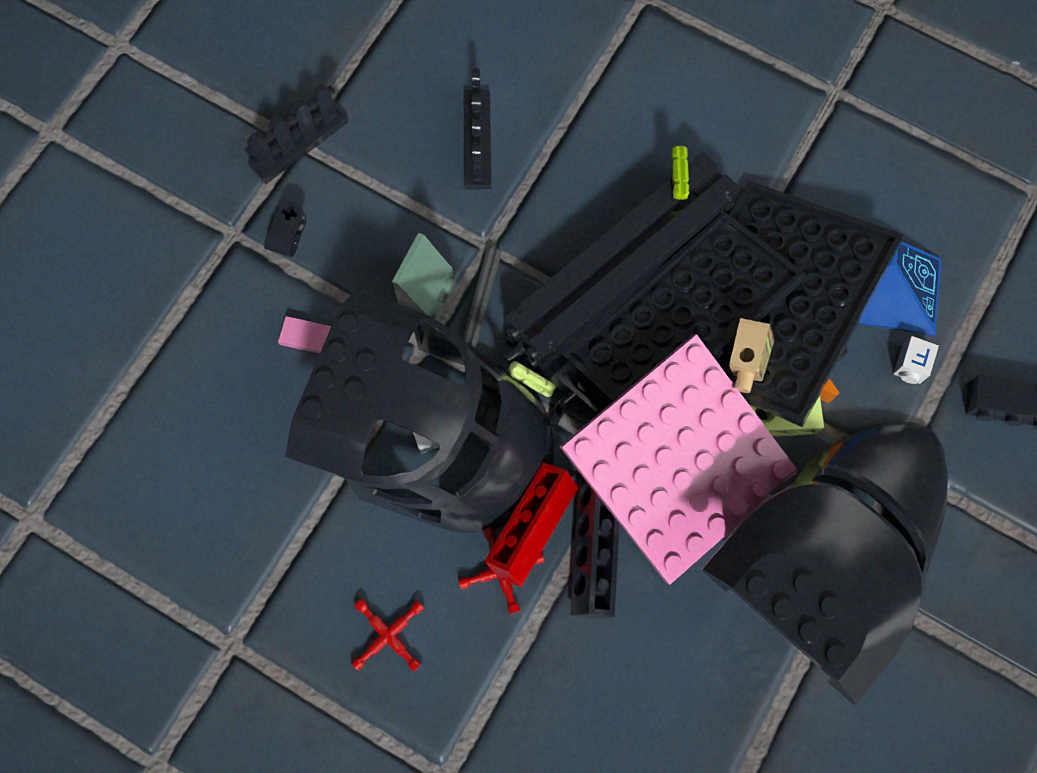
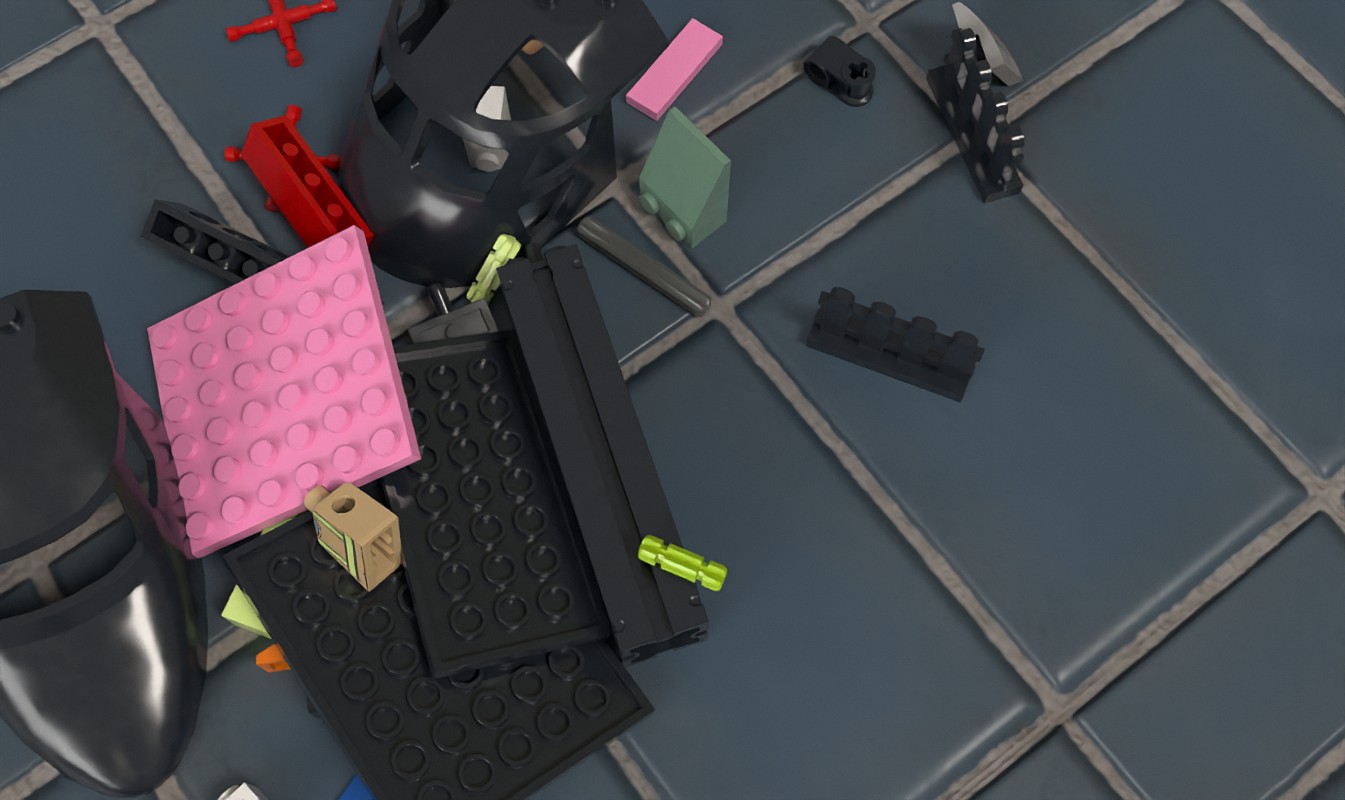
camera: 115 degrees right, 5 degrees down
(236, 144) = (989, 45): none -> light grey slope

